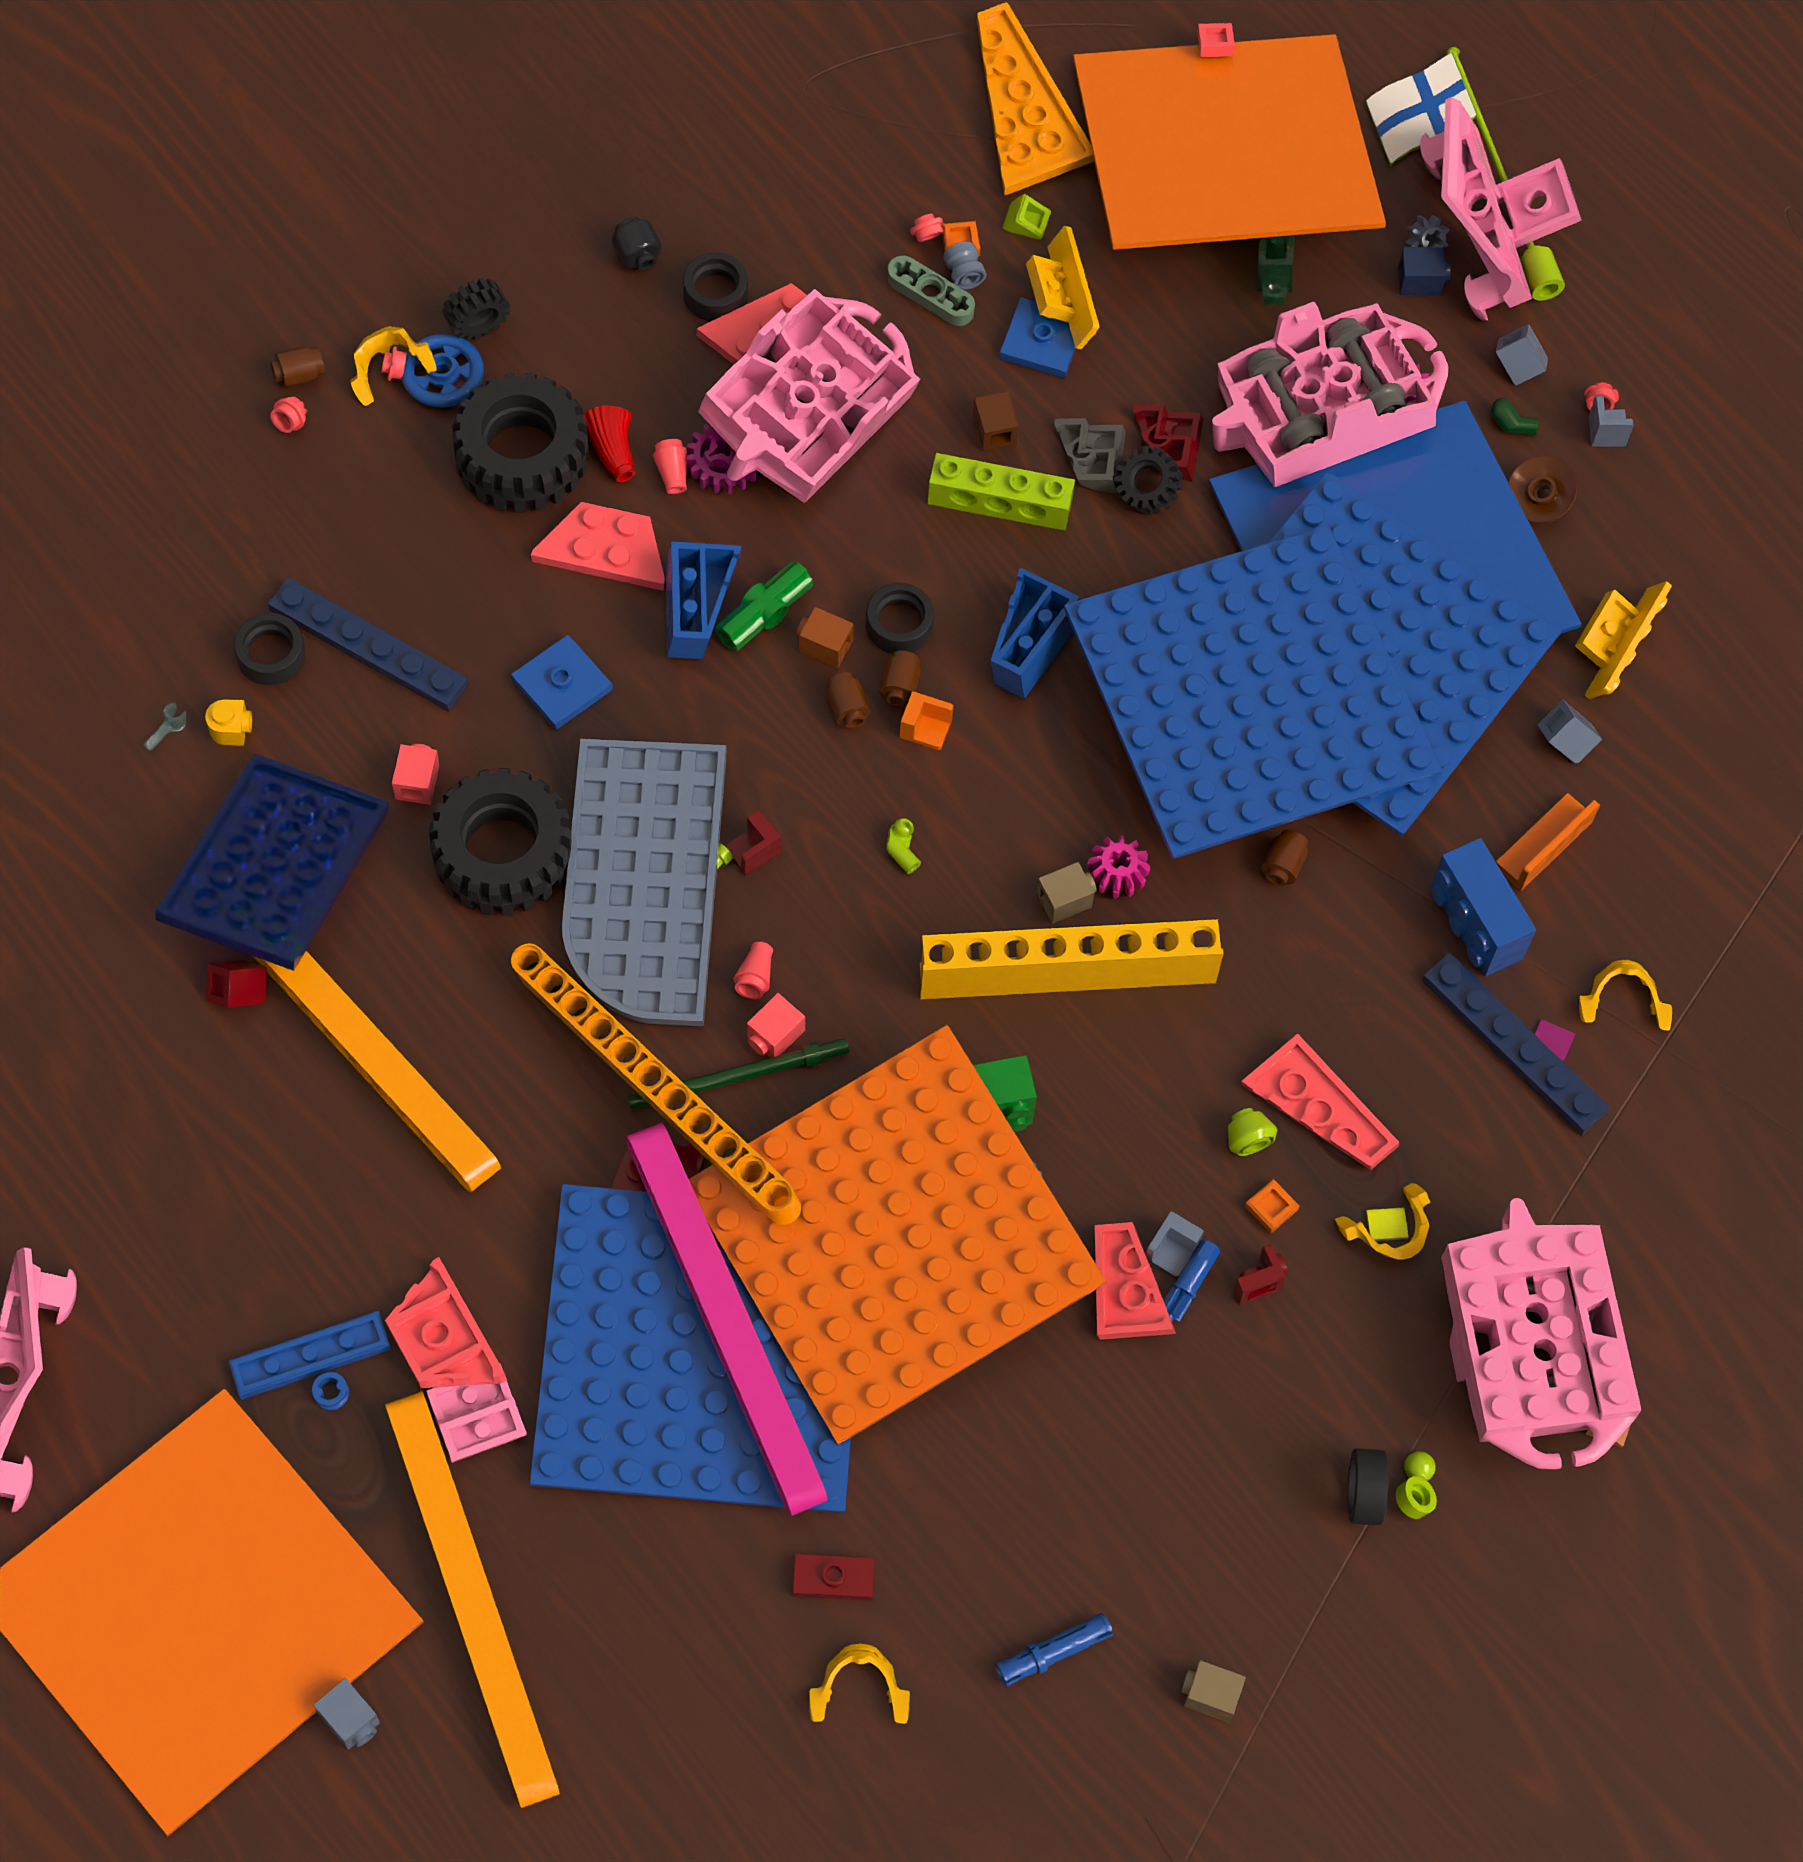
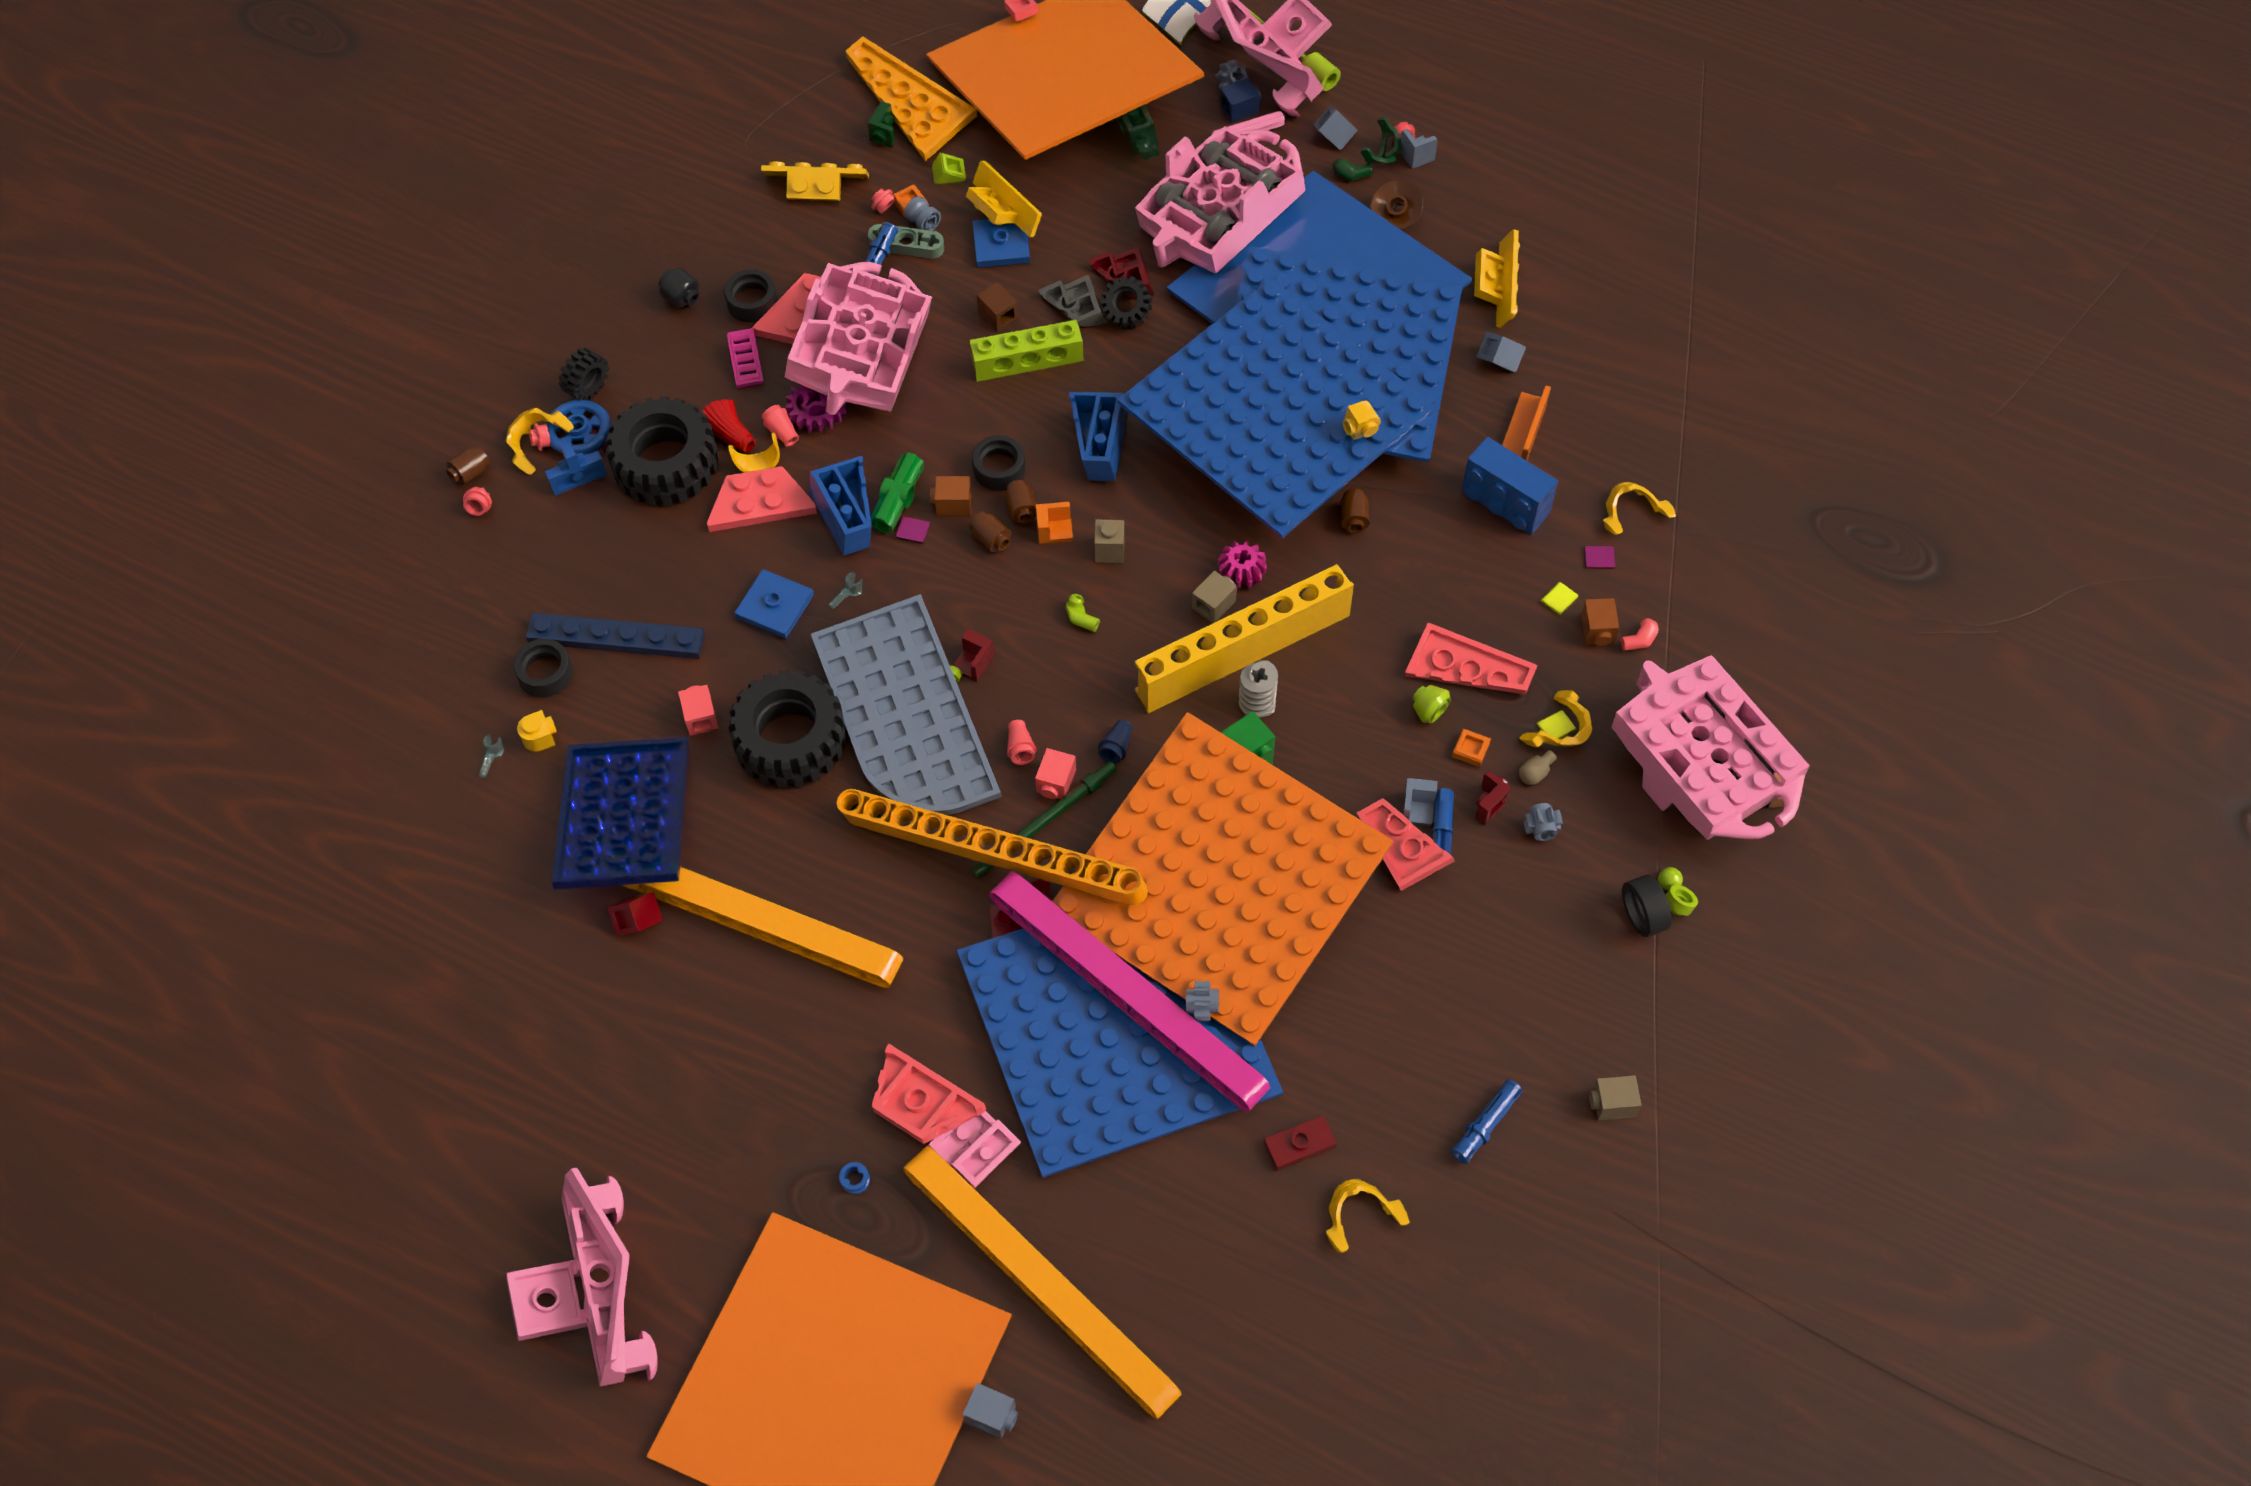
camera: 20 degrees left, 5 degrees down
(309, 1355) = (824, 1159): blue tile -> none
(413, 423) = (575, 470): none -> blue hinge
(624, 498) = (759, 461): none -> yellow helmet
(654, 701) = (850, 589): none -> clear light blue hand
(674, 342) = (741, 342): none -> dark pink slope
(763, 658) = (913, 529): none -> magenta piece
(798, 1368) = (1202, 1000): none -> sand blue gear
(858, 172) = (814, 182): none -> yellow bracket
(863, 1019) = (1116, 742): none -> dark blue cone
(892, 289) = (880, 247): none -> blue pin
(973, 127) = (881, 126): none -> dark green bracket
(978, 771) = (1109, 541): none -> dark tan brick
(1054, 1029) = (1258, 688): none -> light grey piece
(1304, 1333) = (1543, 821): none -> sand blue gear
(1333, 1265) = (1536, 768): none -> dark tan cylinder
(1336, 754) = (1361, 420): none -> yellow plate
(1422, 311) = (1263, 122): none -> bright pink axle
(1476, 1070) = (1559, 598): none -> neon yellow piece
(1504, 1121) = (1600, 621): none -> dark orange brick
(1515, 1044) = (1577, 569): dark blue plate -> none
(1549, 1162) = (1643, 638): none -> coral arm
(1580, 387) = (1387, 131): none -> dark green helmet

